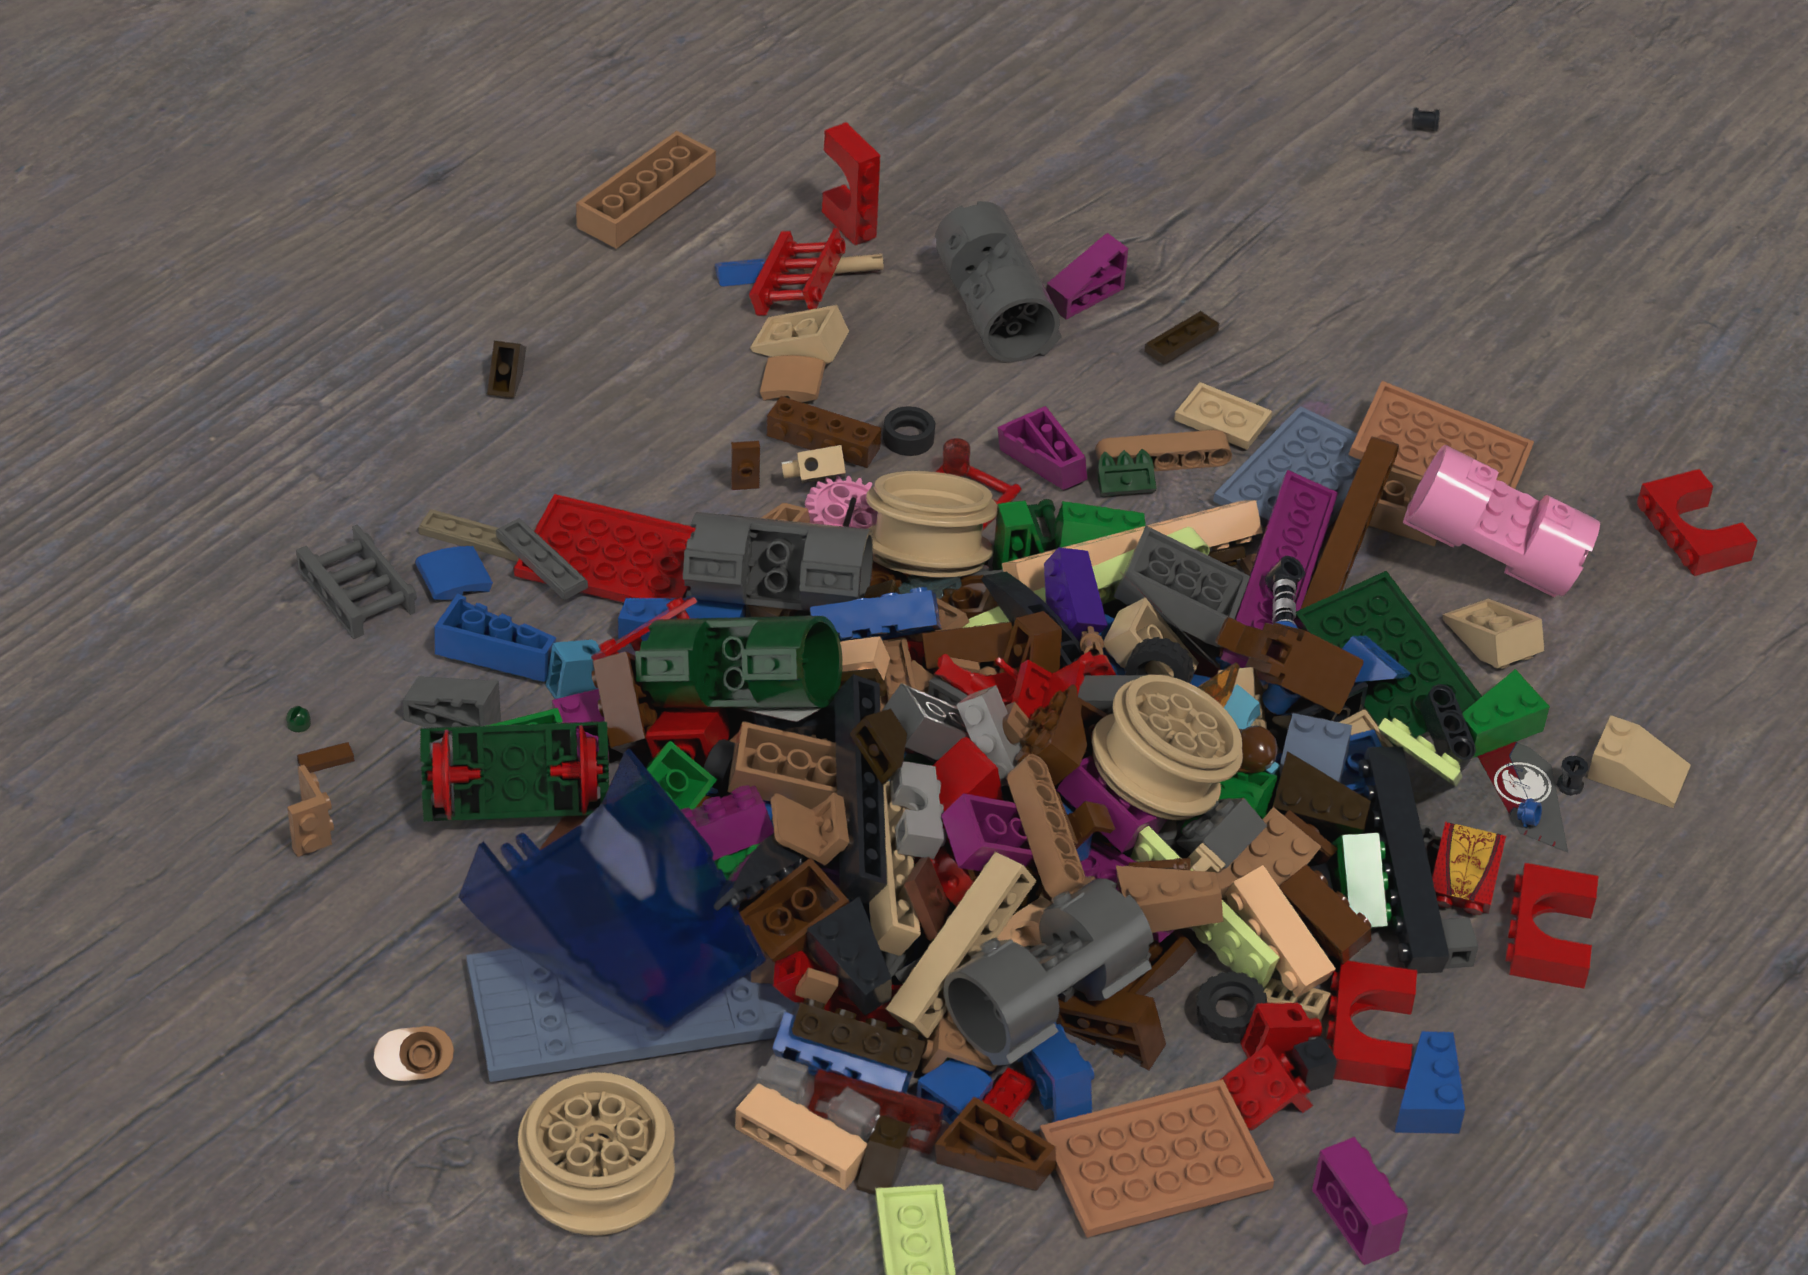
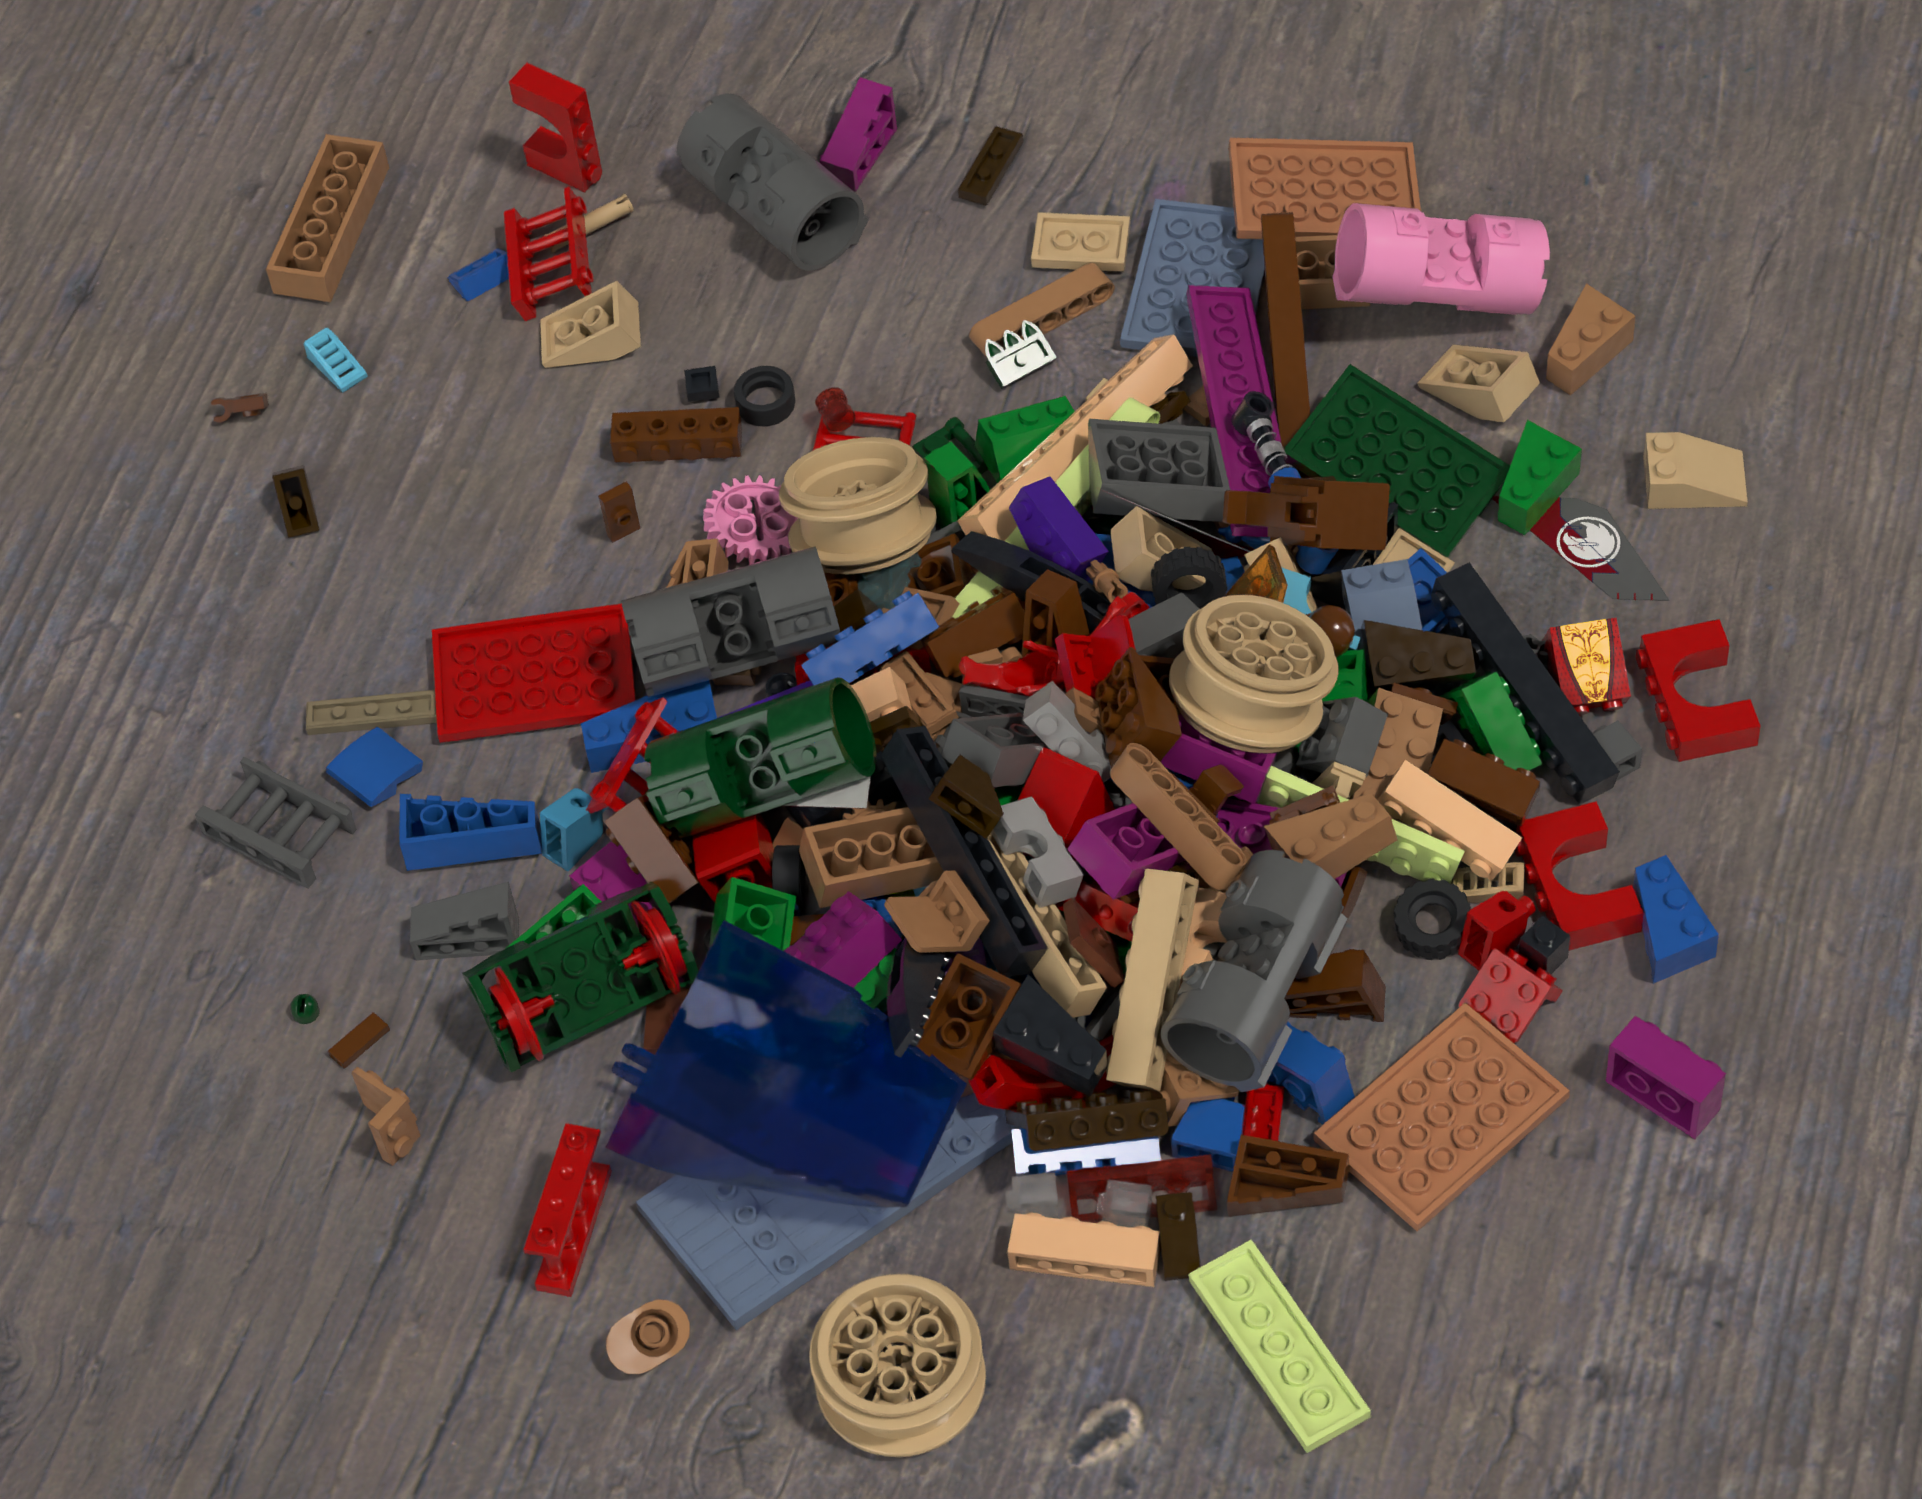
camera: 15 degrees left, 10 degrees up
(417, 947) = (568, 1210): none -> red fence
(510, 293) = (249, 405): none -> reddish brown plate
(542, 558) = (462, 712): dark grey tile -> none
(594, 285) = (323, 345): none -> medium azure slope
(792, 377) = (607, 383): medium nougat slope -> none
(817, 985) = (1027, 1086): medium nougat tile -> none
(829, 462) = (707, 475): tan torso -> none
(865, 404) = (701, 383): none -> black plate
(1044, 447) = (919, 359): magenta wedge -> none
(1377, 662) = (1383, 468): blue slope -> none
(1421, 750) = (1485, 555): yellowish green plate -> none
(1447, 715) = (1489, 500): black beam -> none
(1529, 812) = (1614, 574): blue plate -> none
(1568, 767) = (1644, 509): black bush -> none
(1601, 634) = (1588, 340): none -> medium nougat wedge
(1697, 548) = (1633, 199): red arch -> none

